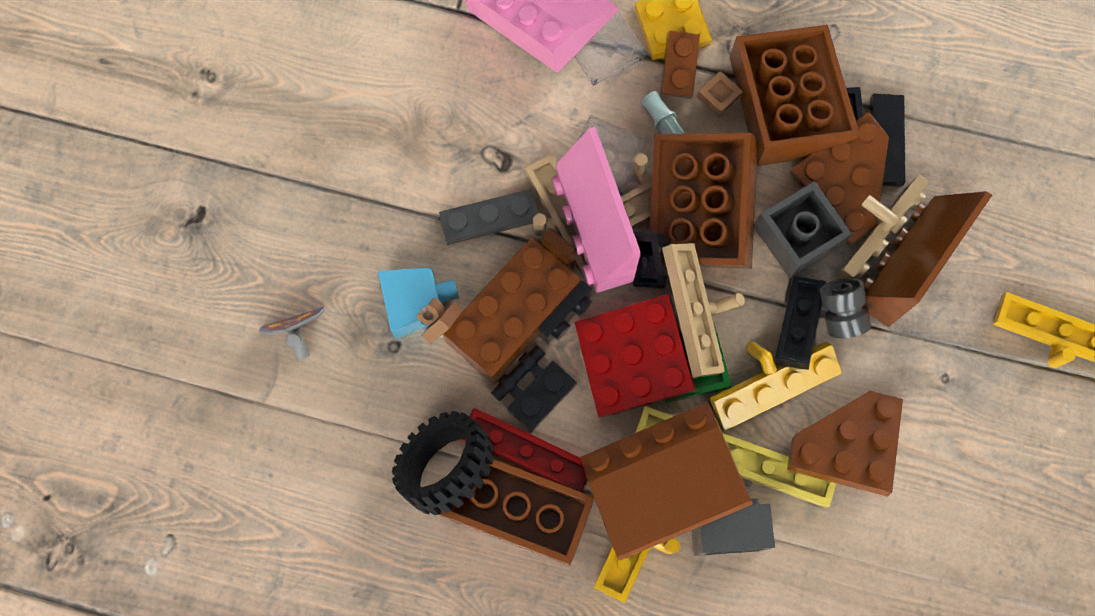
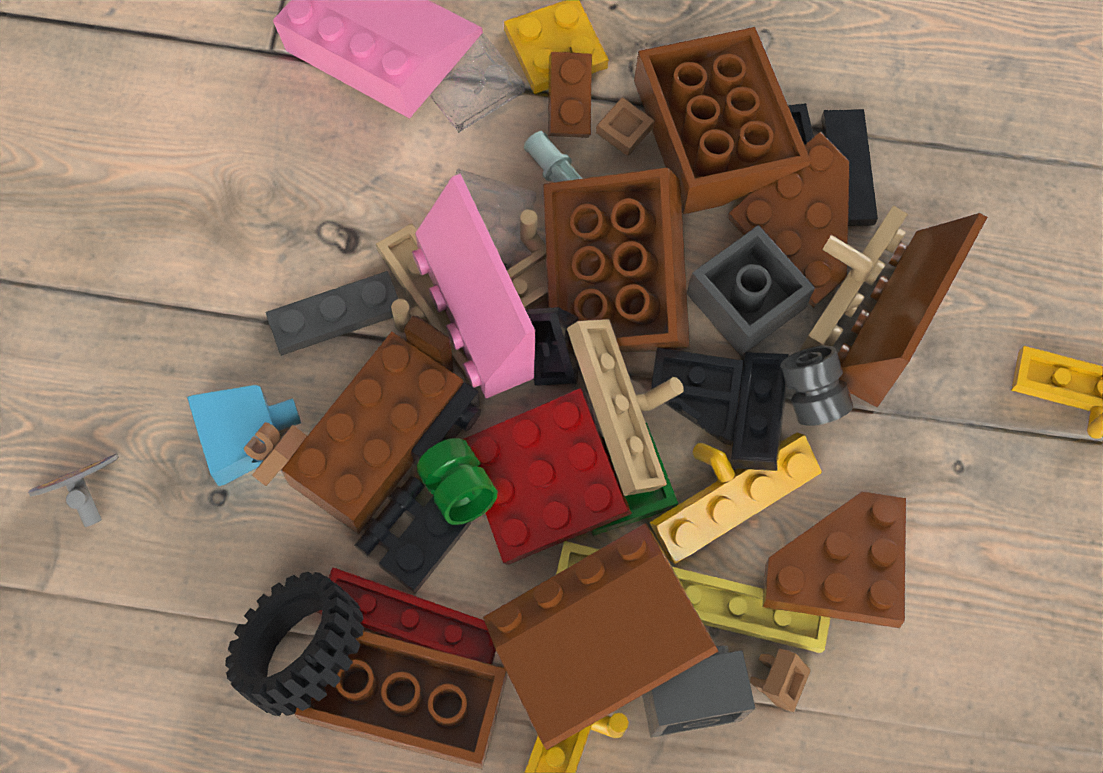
camera: 10 degrees left, 5 degrees down
(570, 356) = (456, 481): none -> green wheel
(763, 304) = (708, 392): none -> black wing
(798, 525) = (784, 680): none -> medium nougat tile

